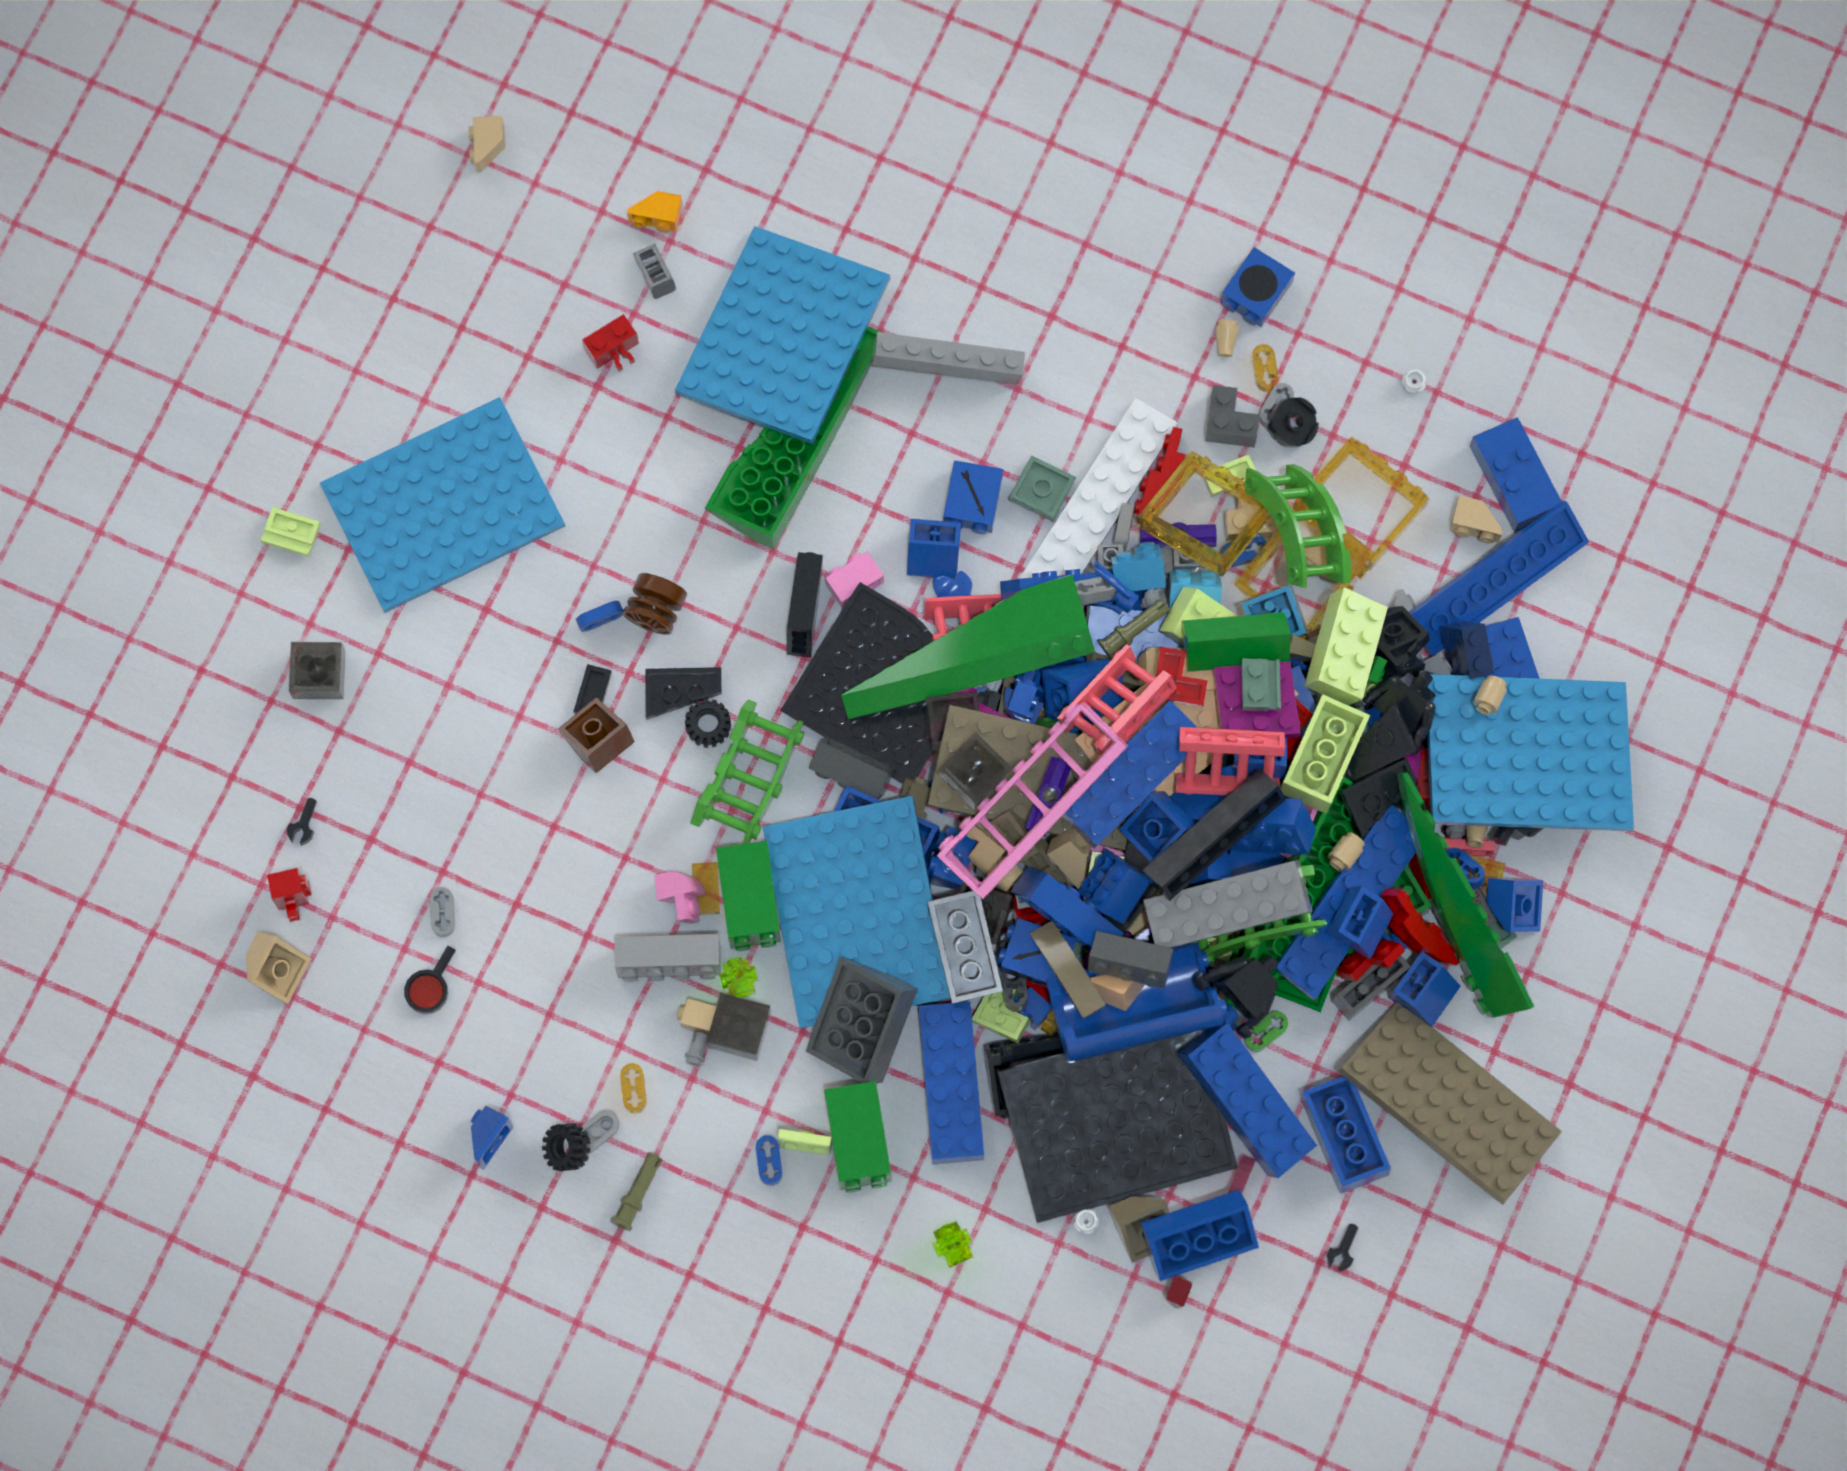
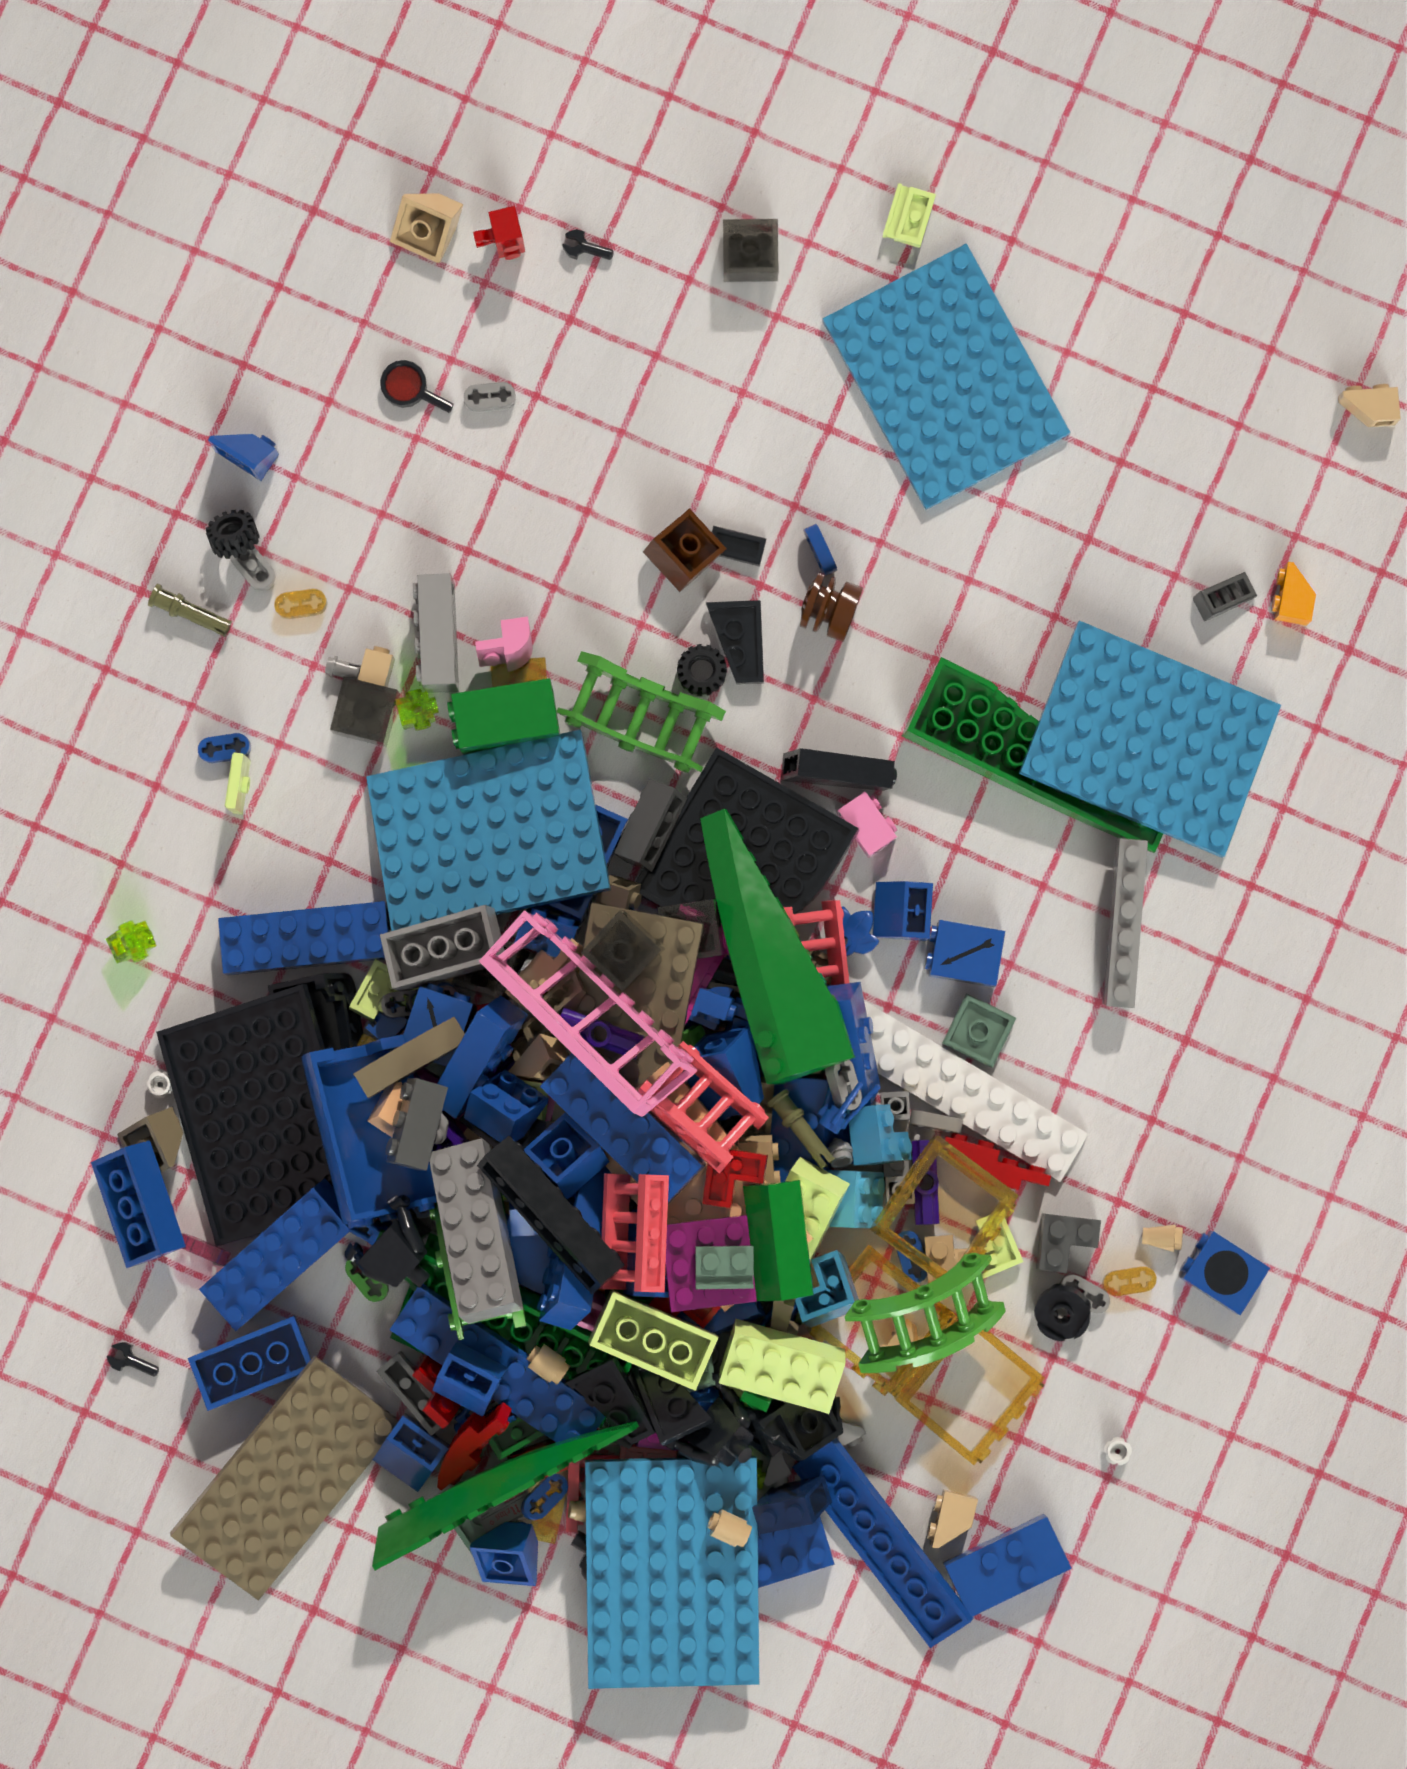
camera: 90 degrees right, 10 degrees up
(611, 342) = (1136, 550): red brick -> none
(858, 1136) = (243, 839): green brick -> none
(861, 1021) = (365, 840): dark grey slope -> none
(1178, 1292) = (80, 1182): dark red slope -> none

